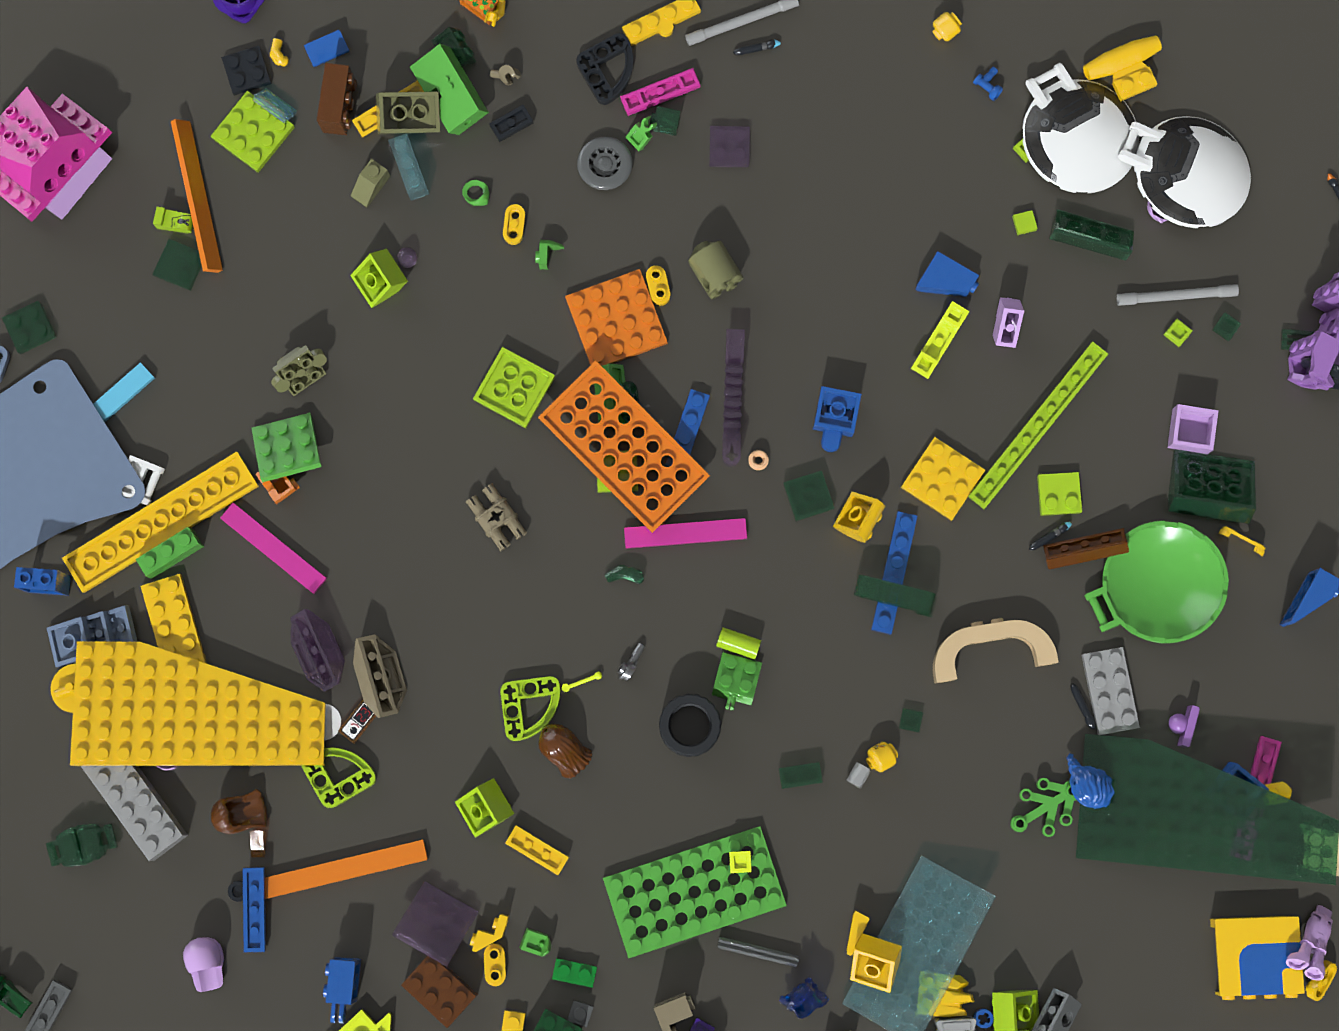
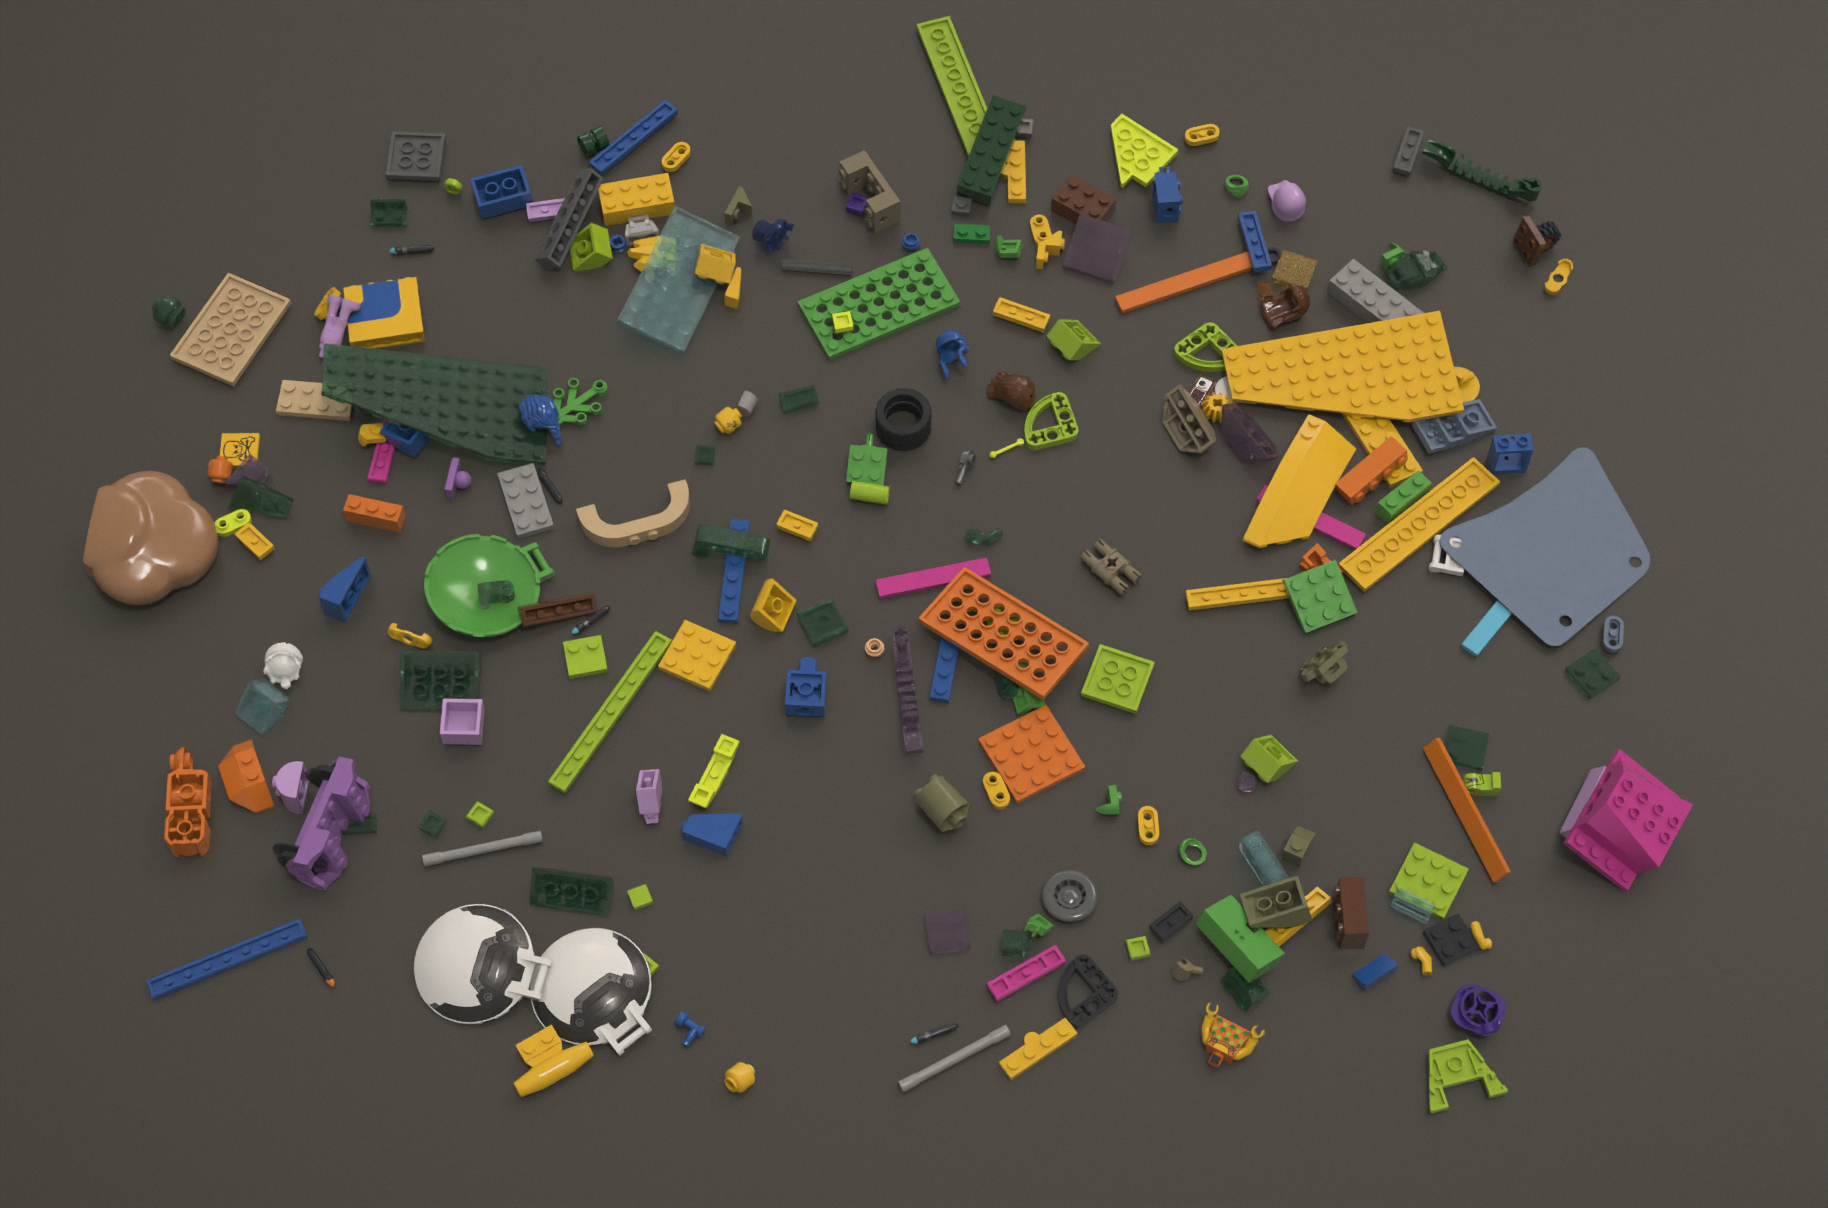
camera: 170 degrees right, 20 degrees down
(103, 862) = (1392, 256): none -> bright green plate
(195, 586) = (1371, 471): none -> orange brick
(216, 61) = (1479, 937): none -> yellow arm
(218, 864) = (1294, 269): none -> clear yellow tile
(257, 985) = (1237, 191): none -> bright green piece
(274, 584) = (1300, 485): none -> yellow slope
(351, 697) = (1212, 406): none -> yellow gear
(369, 466) = (1236, 594): none -> yellow plate
(548, 104) = (1138, 948): none -> lime tile
(625, 815) = (951, 346): none -> blue hair
(646, 970) = (911, 241): none -> blue plate
(821, 615) = (797, 525): none -> yellow plate
(1145, 575) = (495, 592): none -> clear green leg
(1275, 693) = (374, 513): none -> orange brick

